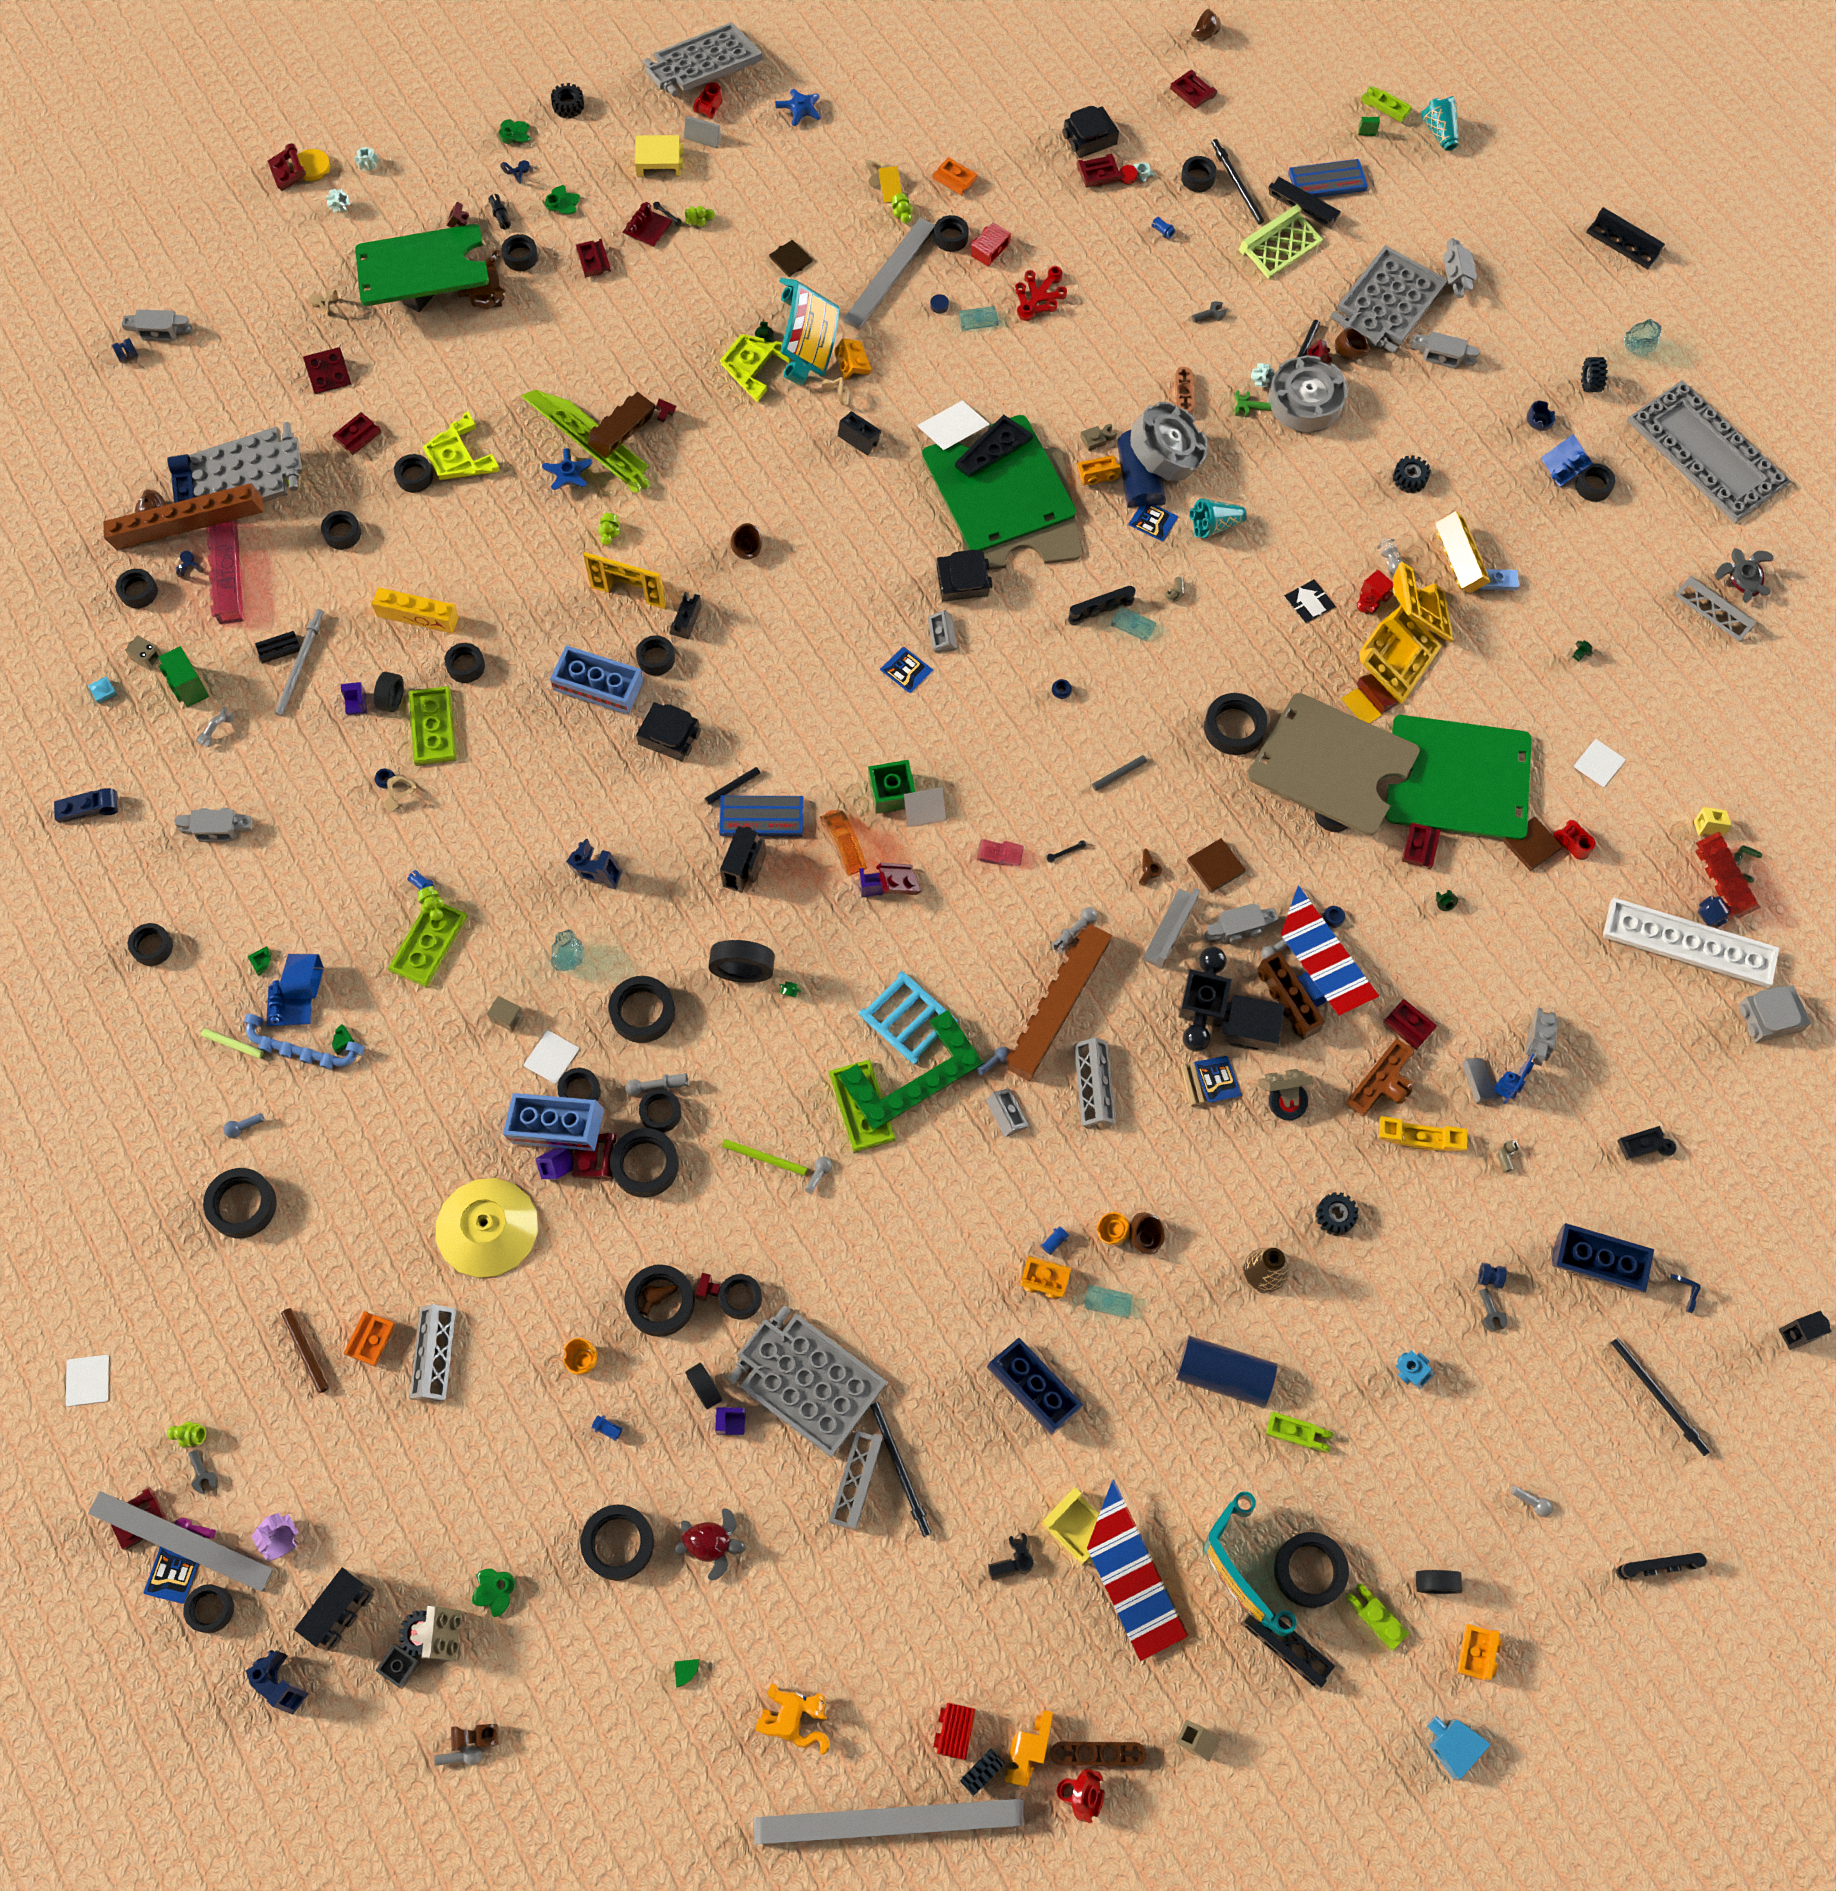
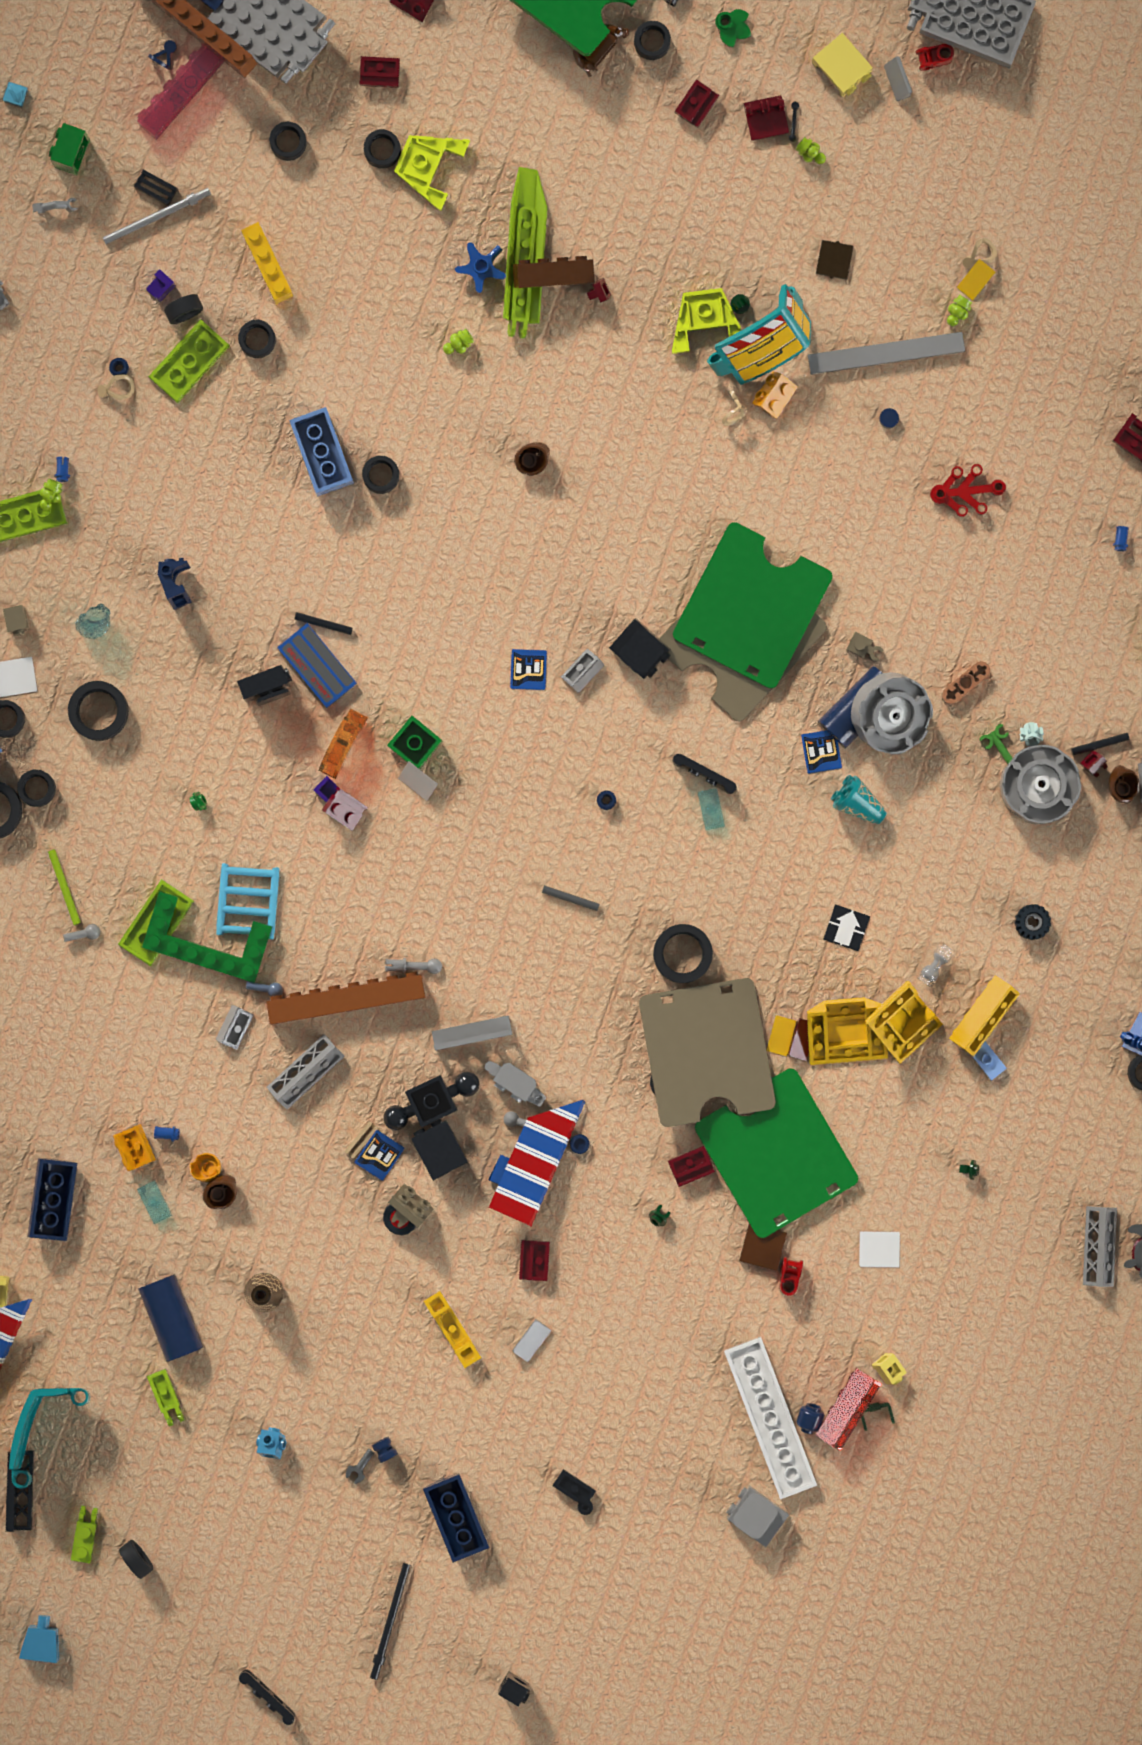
camera: 50 degrees right, 20 degrees up
(131, 576) = (112, 22): black tyre -> none
(143, 652) = (66, 96): dark tan brick -> none
(604, 571) = (424, 399): yellow slope -> none
(635, 1087) = (40, 755): light grey pin -> none
(668, 731) = (325, 541): black brick -> none
(686, 616) = (432, 467): black hinge -> none
(741, 961) = (183, 754): black tyre -> none
(800, 106) = (995, 135): blue animal -> none
(858, 432) = (706, 459): black hinge -> none
(952, 222) = (970, 356): black tyre -> none
(953, 425) = (777, 526): white sticker -> none
(955, 176) = (1029, 325): orange plate -> none
(978, 318) = (901, 460): clear light blue plate -> none
(990, 244) = (982, 412): brick -> none
(993, 445) = (778, 576): black wing -> none
(1001, 854) = (430, 863): clear pink slope -> none
(1051, 857) = (458, 902): black hinge -> none
(1098, 470) = (829, 674): light orange bracket -> none
(1150, 868) = (509, 981): reddish brown animal -> none
(1179, 590) = (768, 821): dark tan arm -> none
(1212, 312) = (1065, 643): dark grey bar -> none
(1216, 865) = (551, 1027): reddish brown tile -> none
(1288, 990) = (483, 1161): reddish brown brick -> none
(1328, 1219) = (354, 1314): black bush -> none
(1338, 1561) = (56, 1477): black tyre -> none
(1375, 591) = (895, 975): red brick -> none
(1384, 1080) = (473, 1272): dark orange plate -> none
(1479, 1653) = (112, 1616): light orange bracket -> none
(1505, 1153) = (489, 1396): dark tan arm -> none
(1513, 1083) = (539, 1369): blue hinge -> none
(1541, 1036) = (596, 1361): light grey hinge -> none
(1541, 1506) = (247, 1592): light grey bar -> none
(1694, 1291) = (485, 1574): dark blue piece -> none

